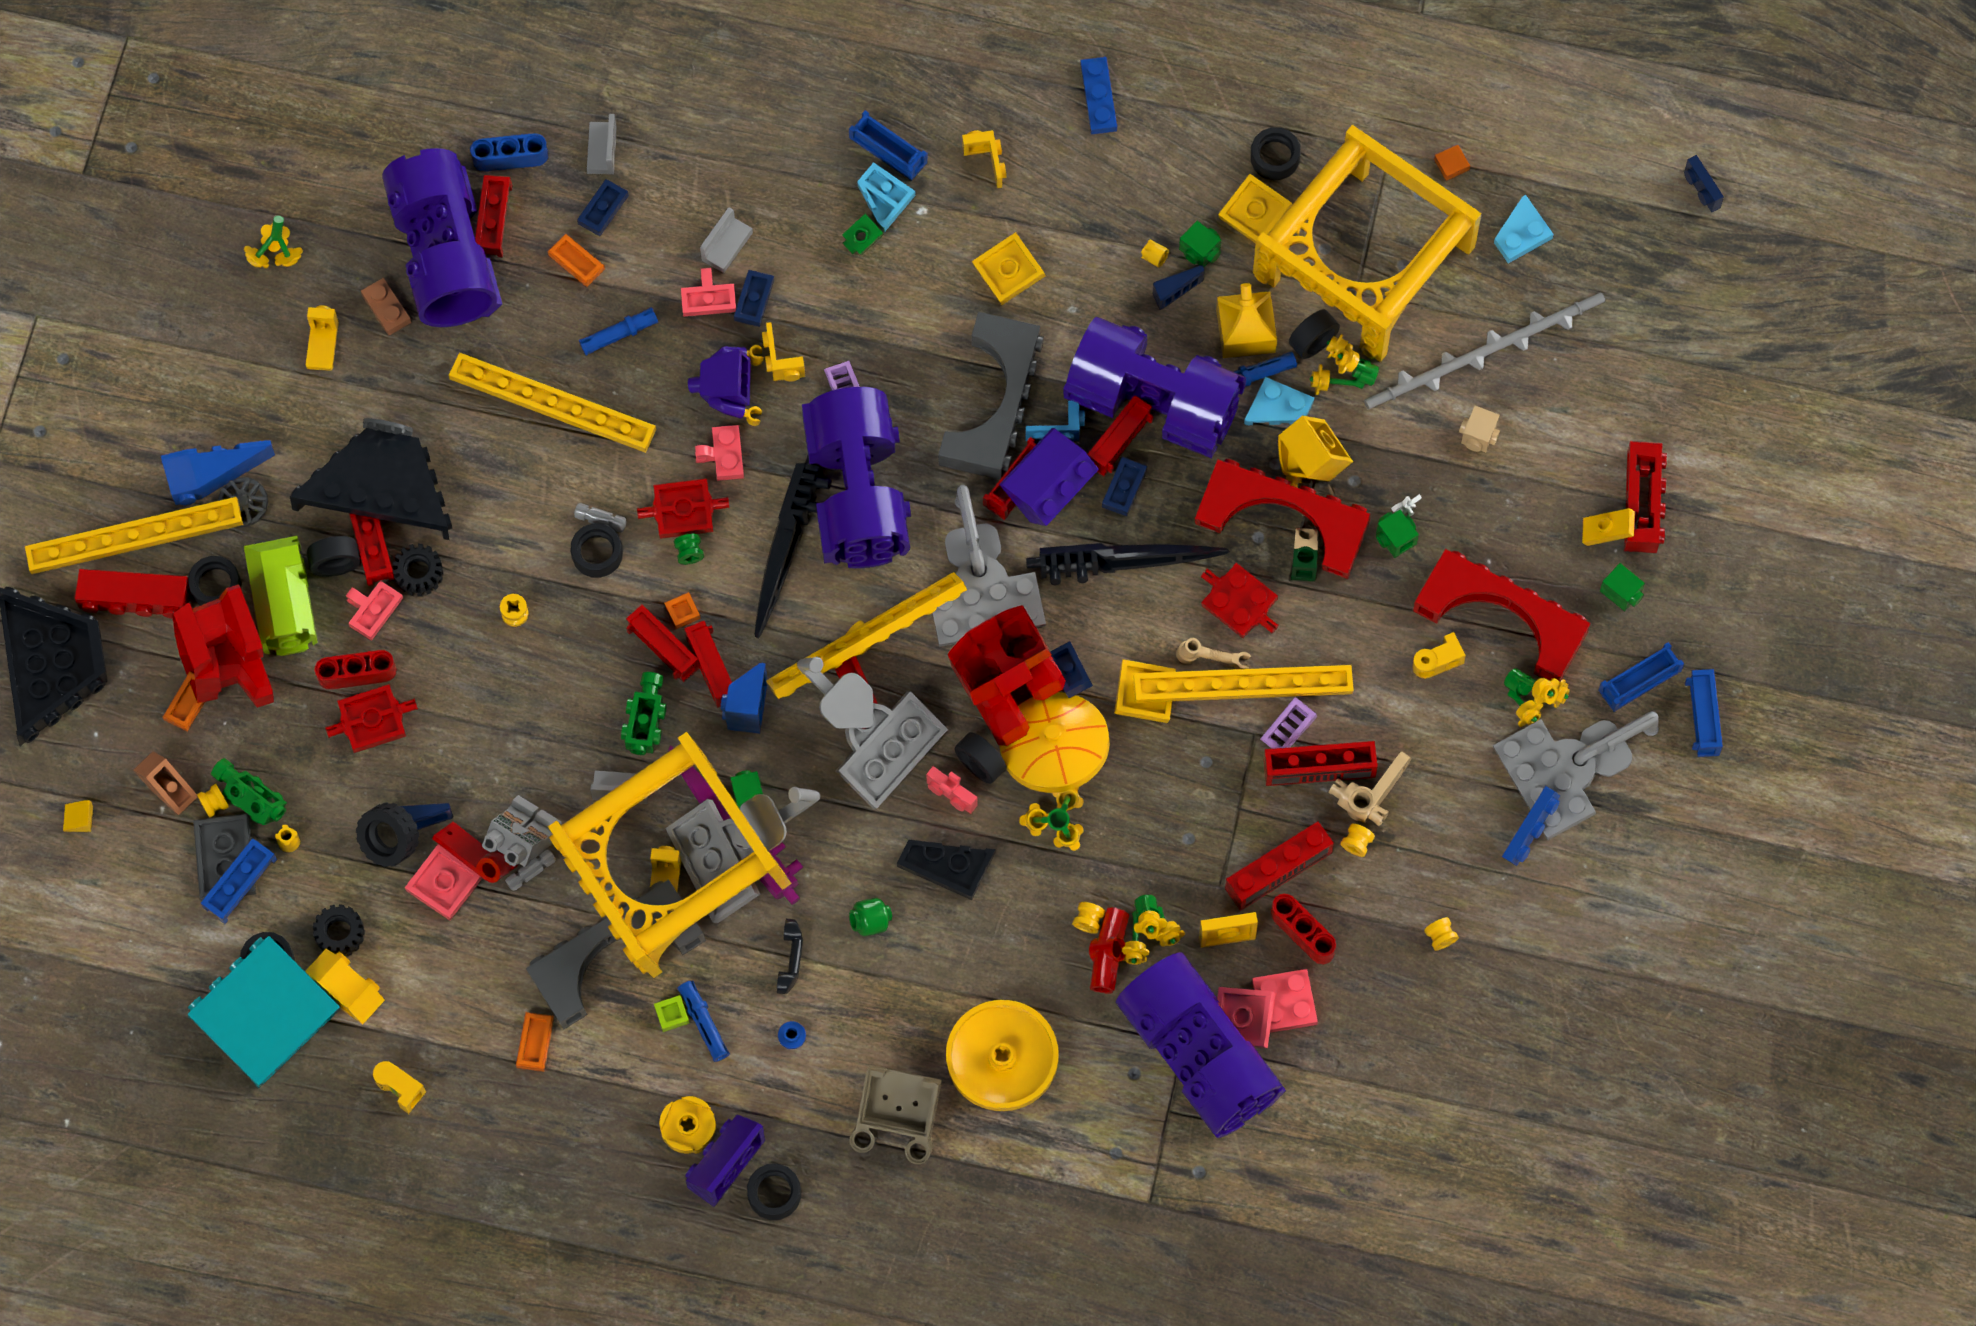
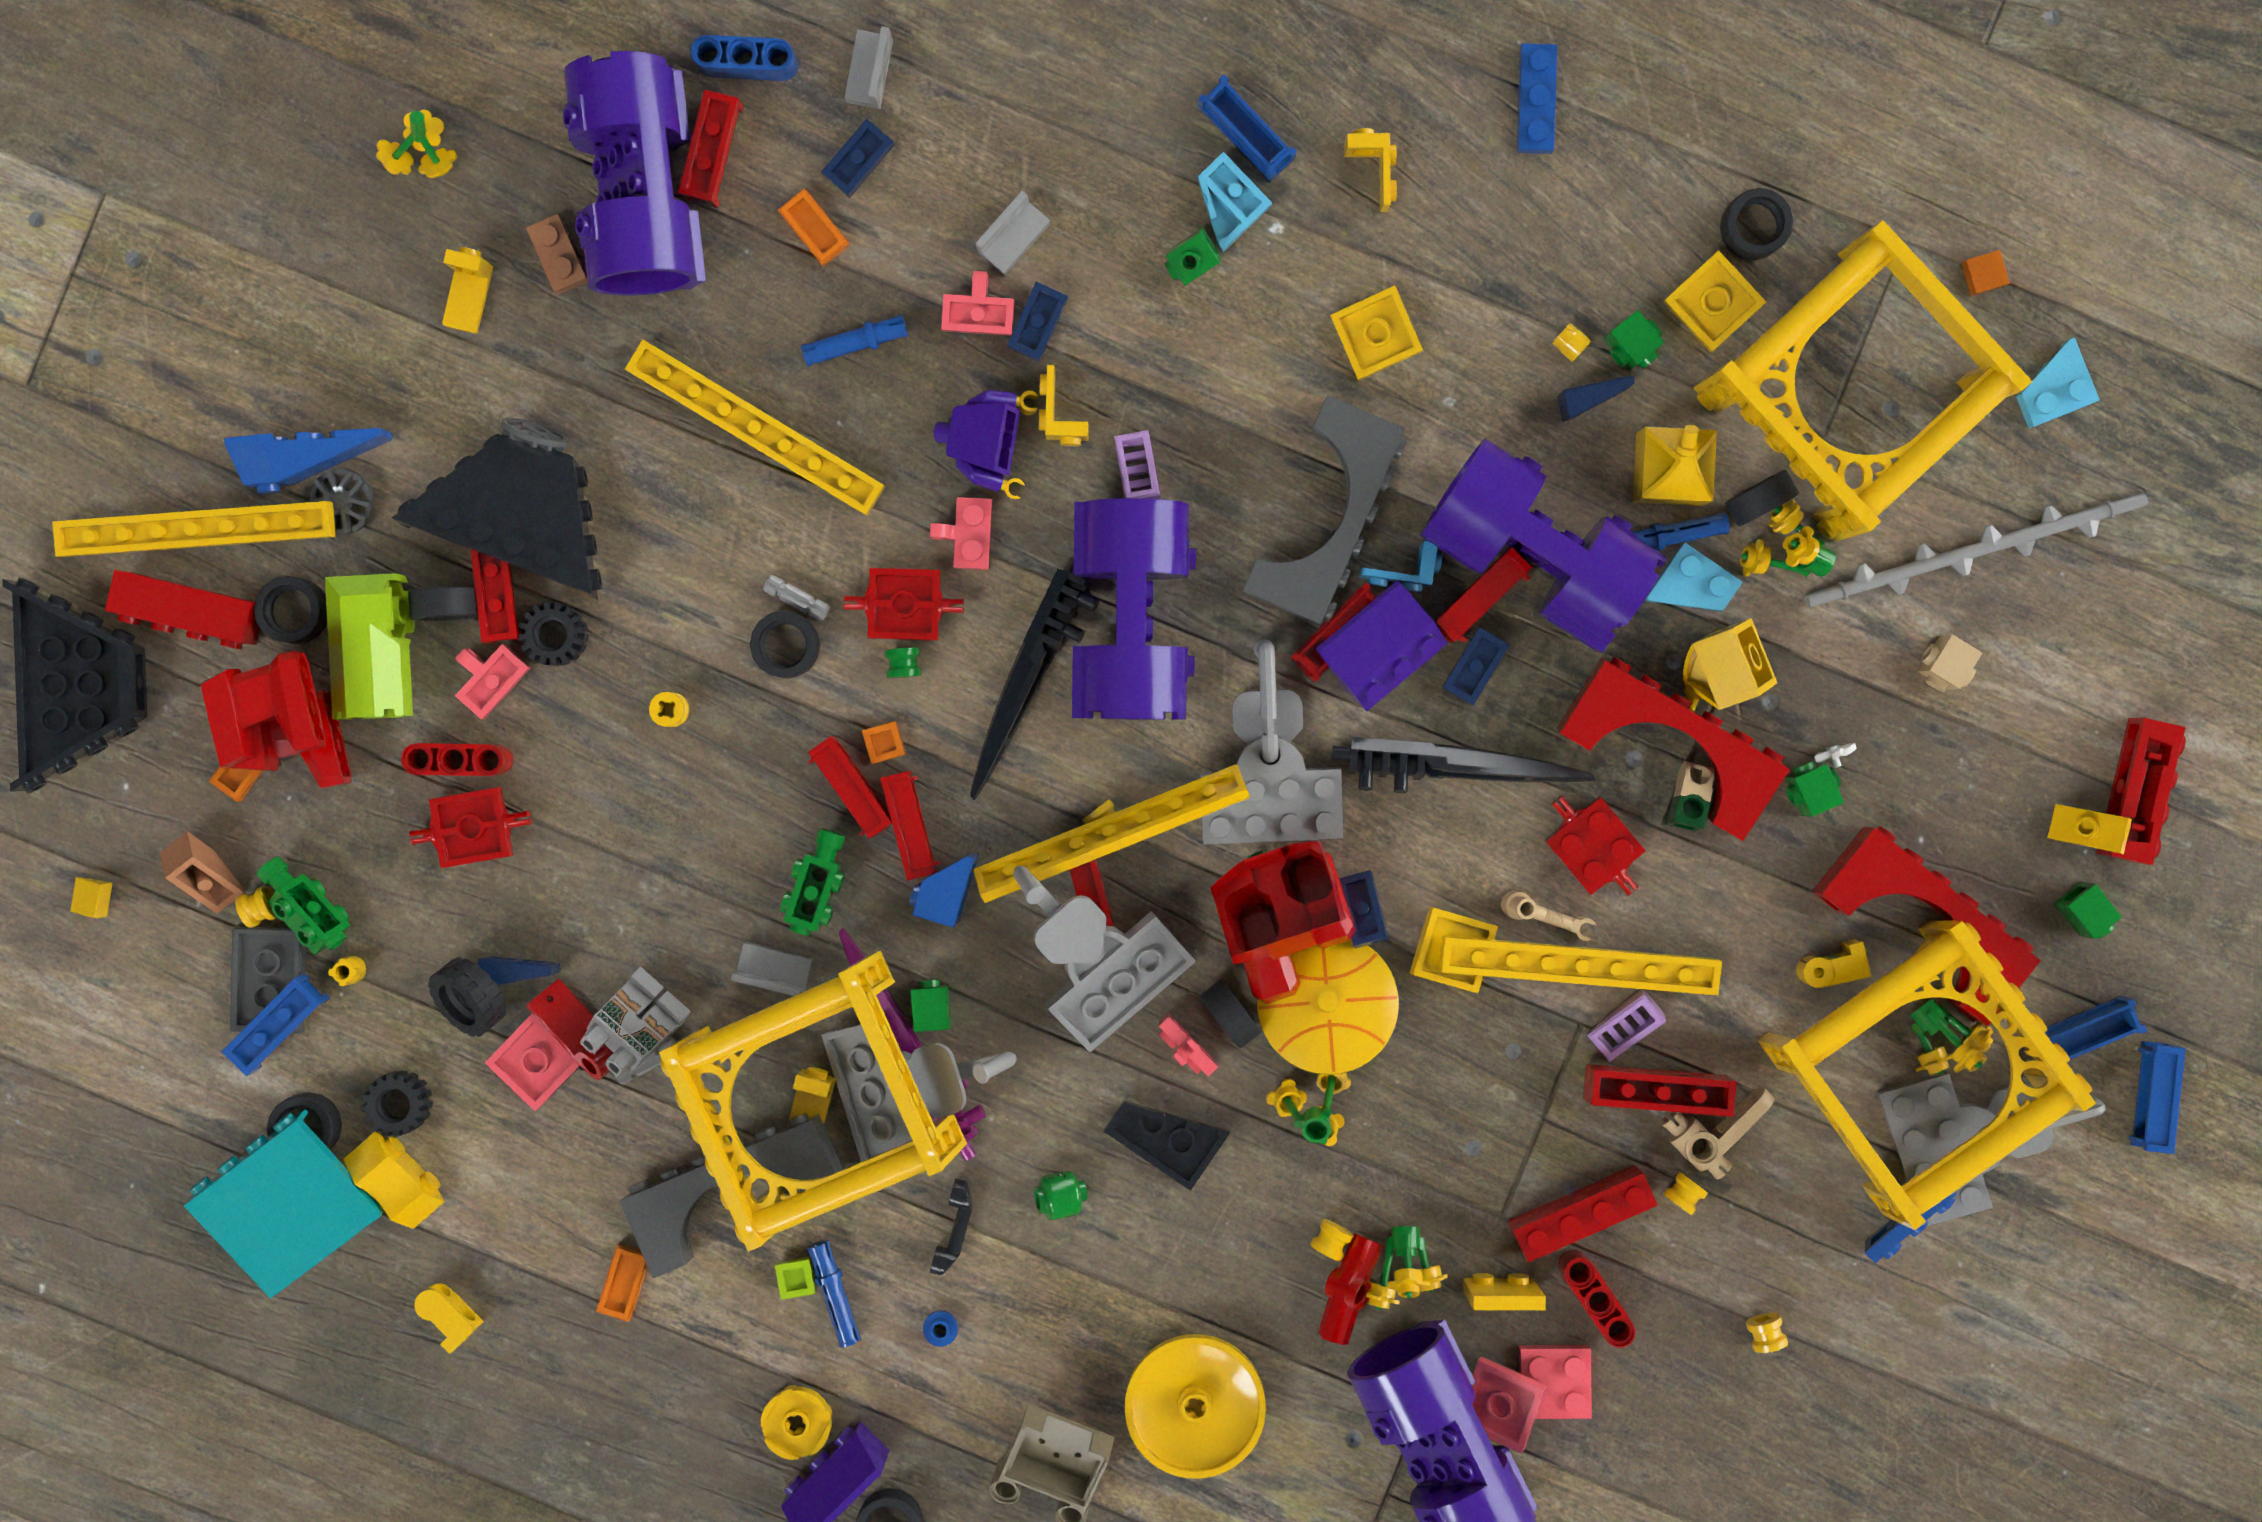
camera: 10 degrees right, 20 degrees up
(1519, 619) = (2055, 1084): none -> yellow arch

